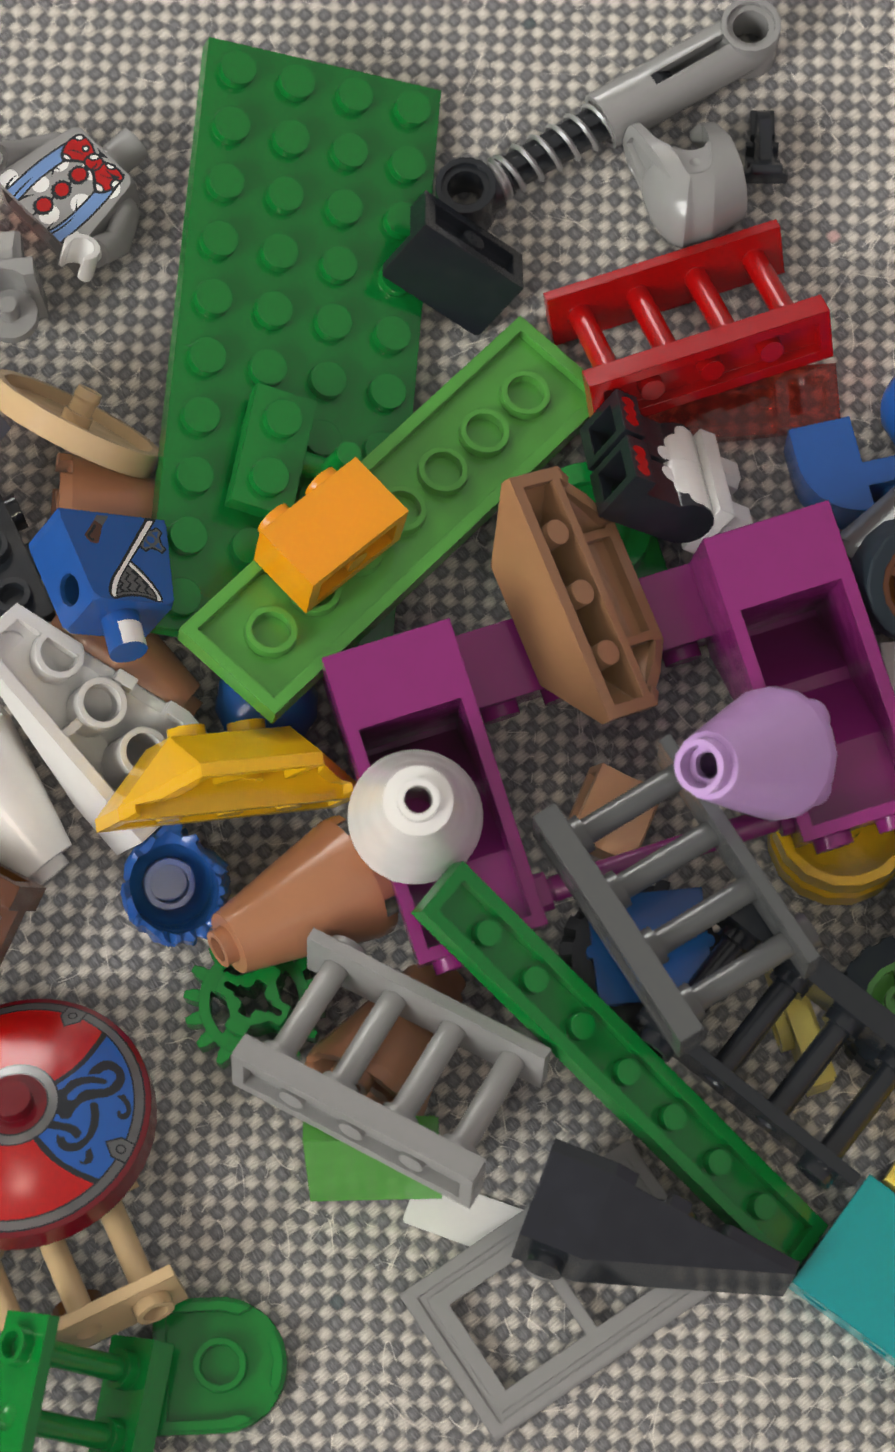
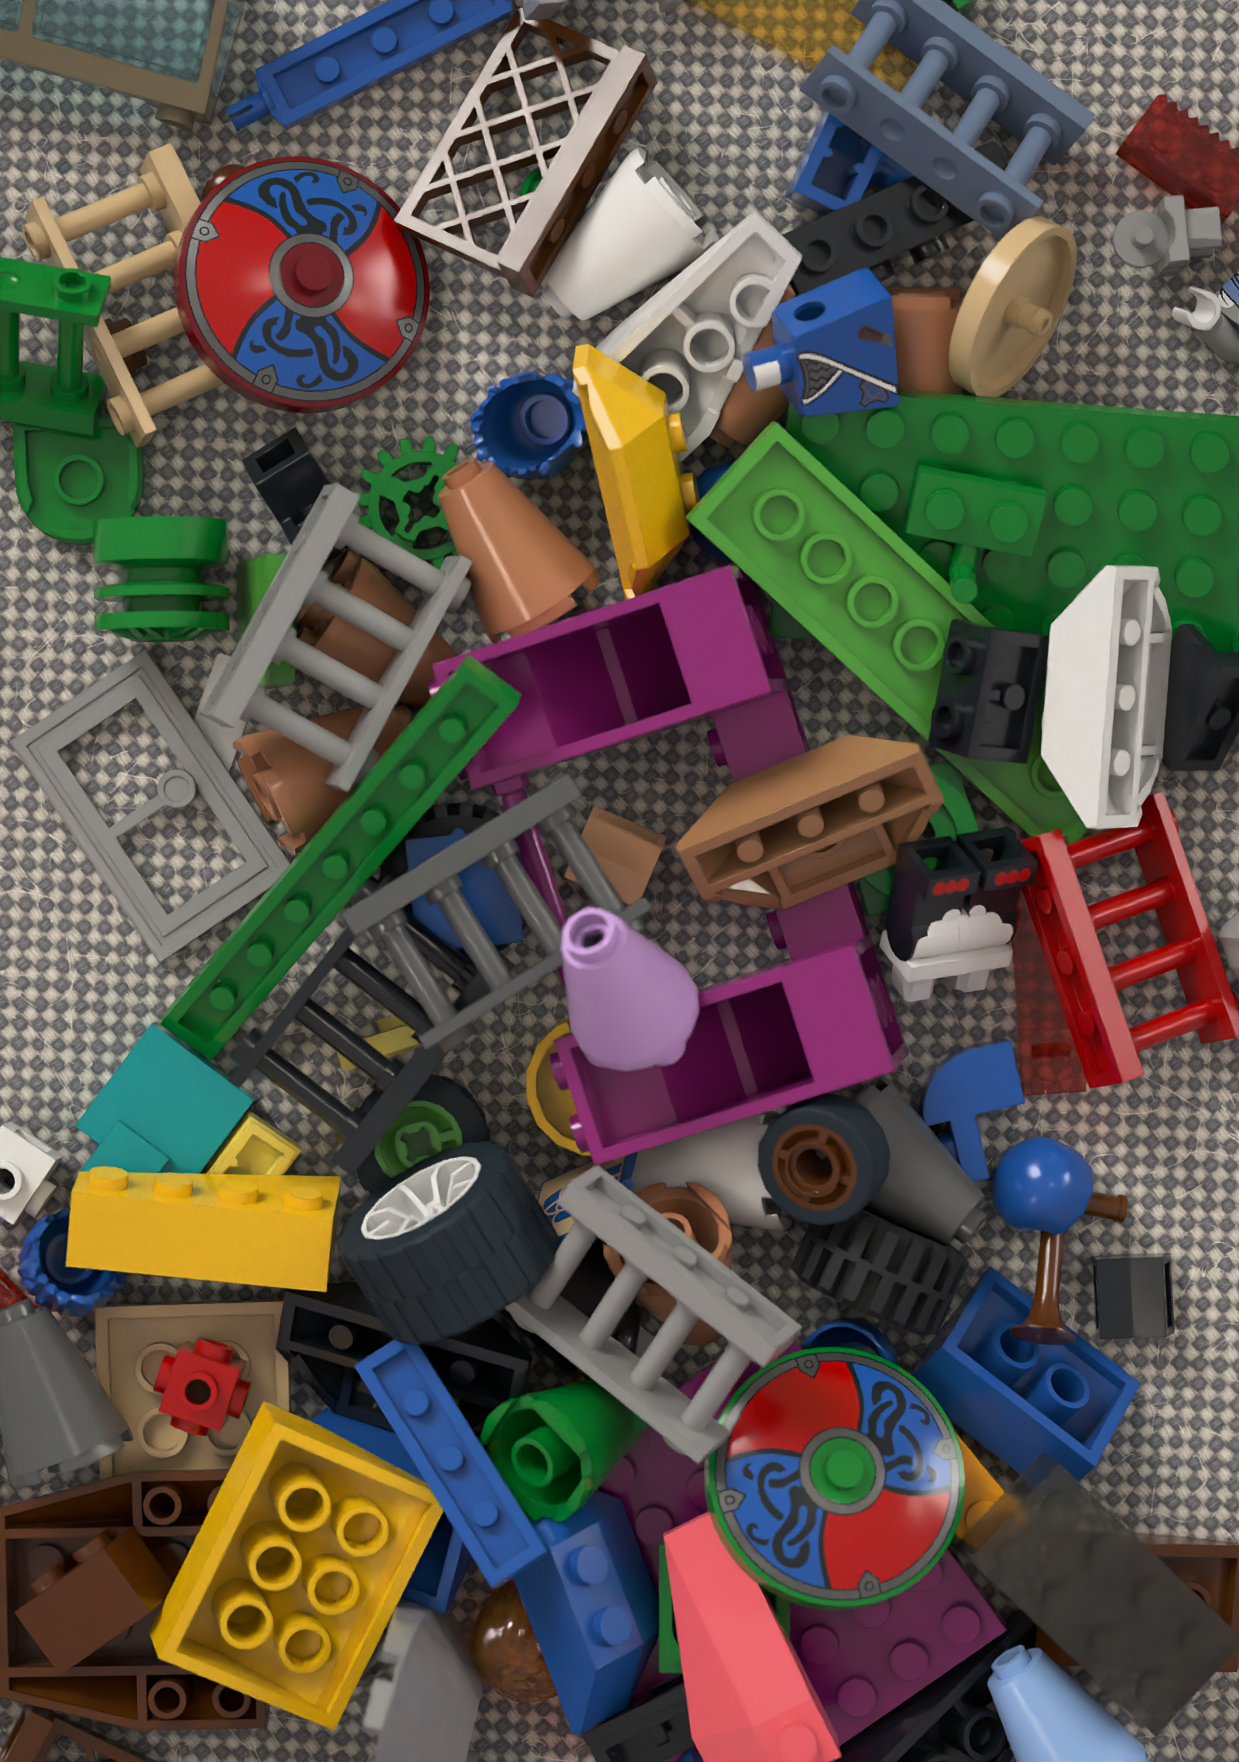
camera: 90 degrees right, 15 degrees up
(233, 1136) = (288, 481): none -> black brick
(323, 1267) = (161, 576): none -> green wheel
(329, 533) = (878, 571): light orange brick -> none
(409, 844) = (594, 662): white cone -> none
(447, 443) = (988, 692): none -> black bracket
(452, 336) = (1108, 695): none -> white wedge
(531, 1119) = (291, 779): none -> nougat cone
(604, 1230) = (197, 836): black wedge -> none

